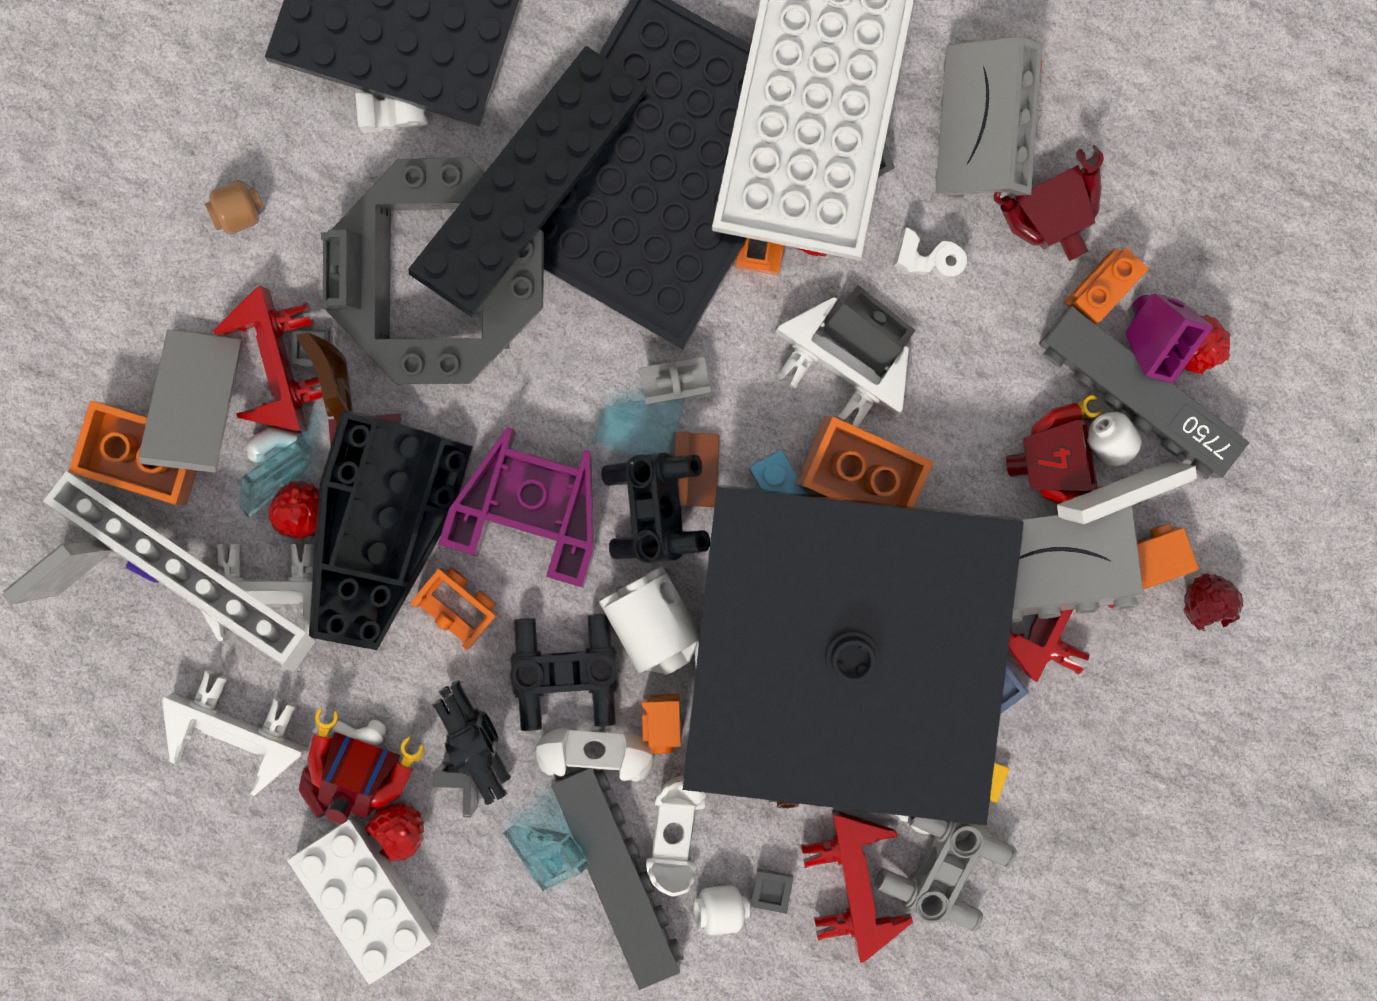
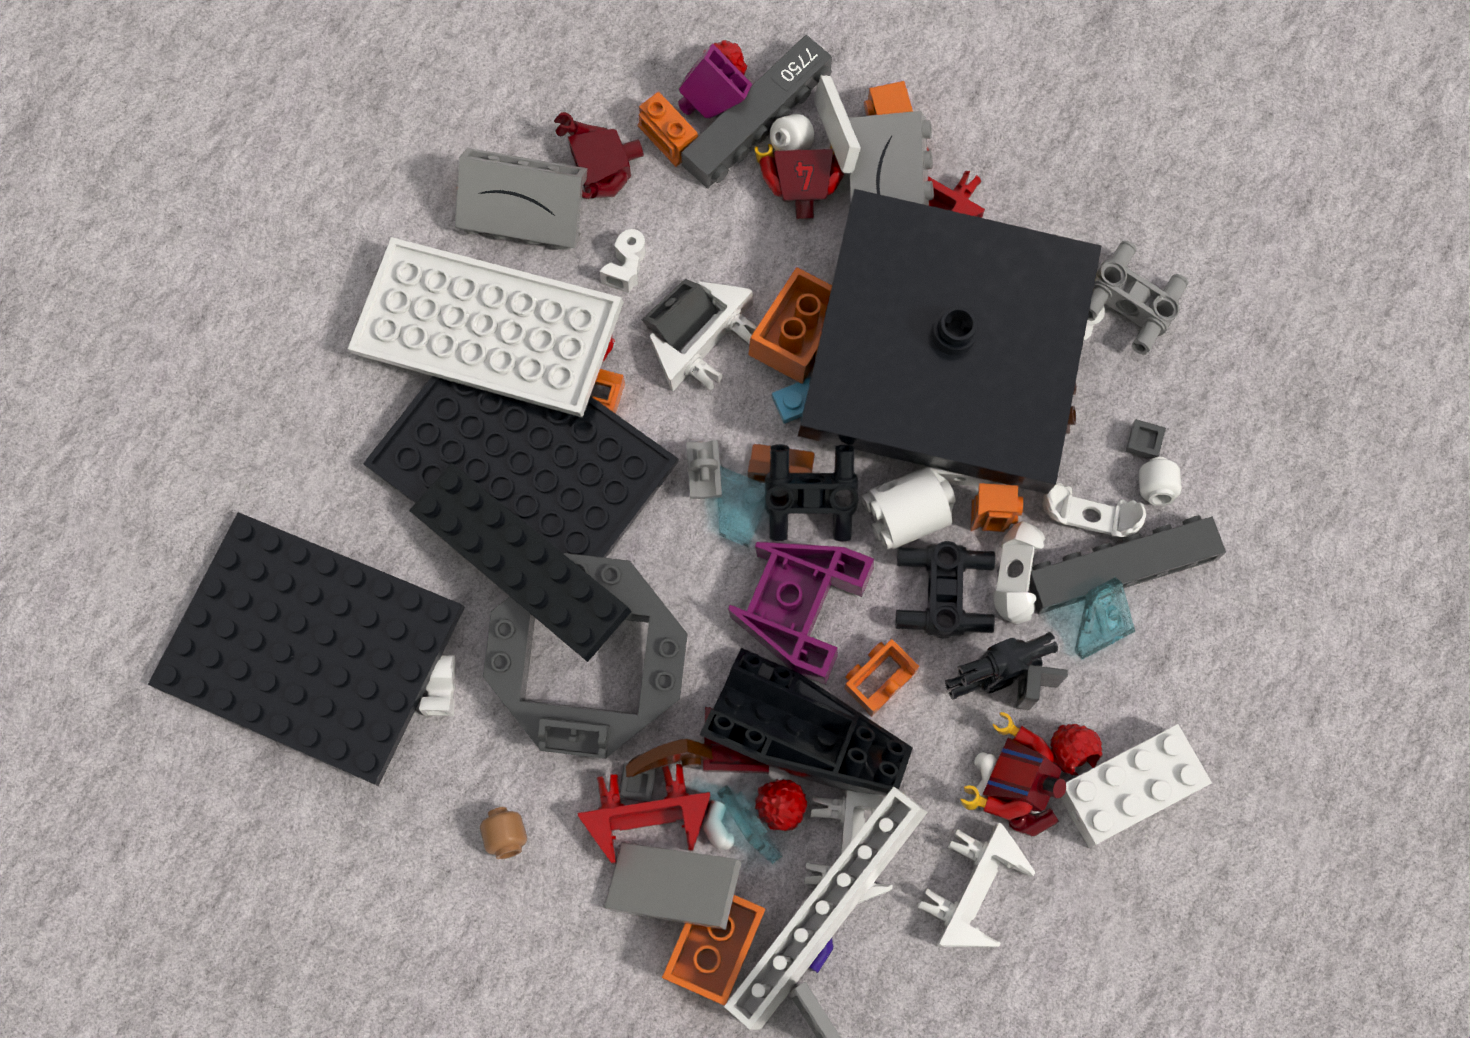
camera: 85 degrees left, 15 degrees down
(859, 919) = (1172, 368): red hose -> none
(1211, 600) = (930, 76): dark red piece -> none

